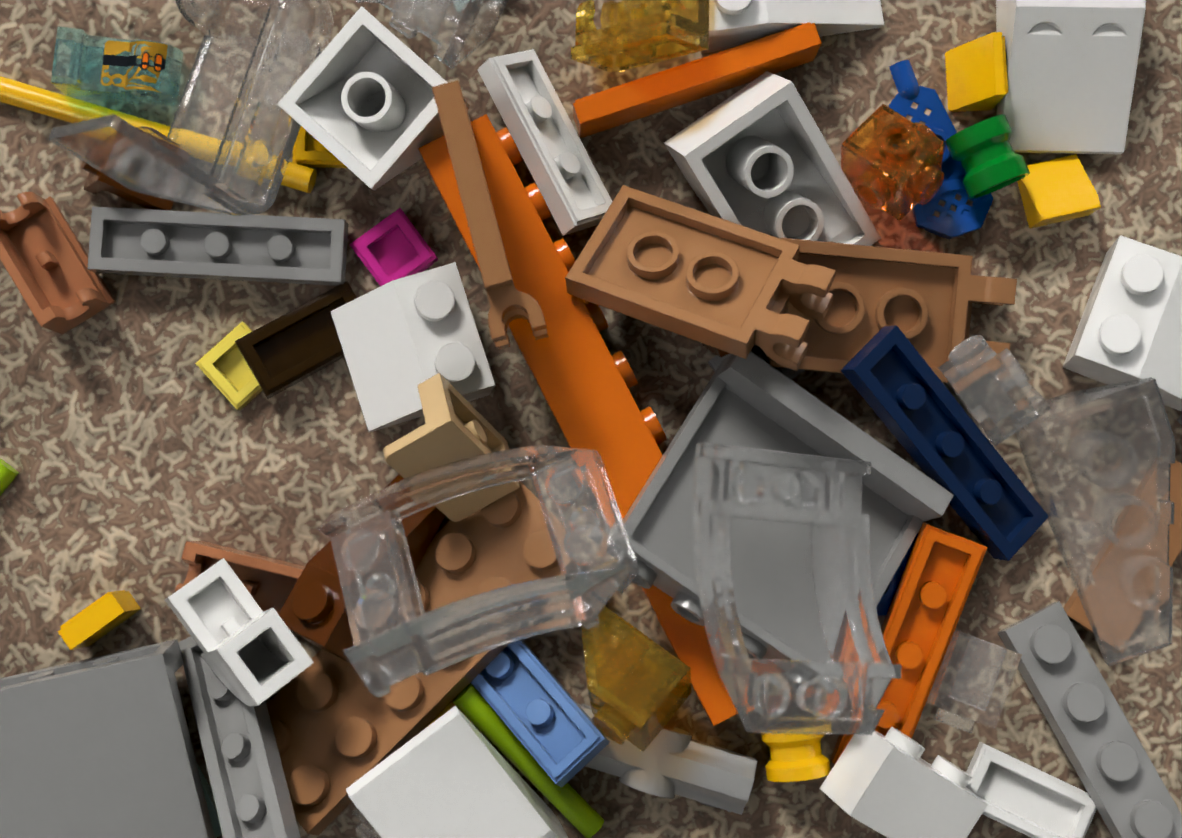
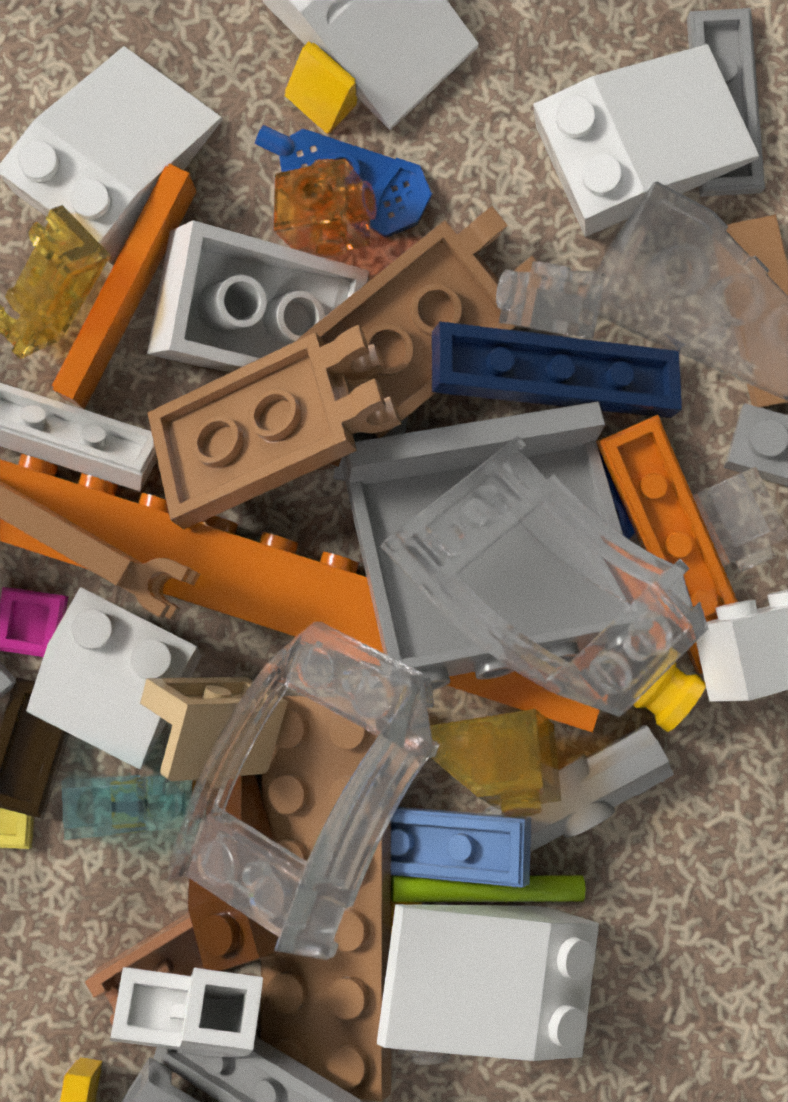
camera: 45 degrees left, 0 degrees up
(332, 443) = (120, 804): none -> clear light blue leg
(987, 156) = (386, 139): green wheel -> none
(1057, 192) = (458, 117): yellow slope -> none

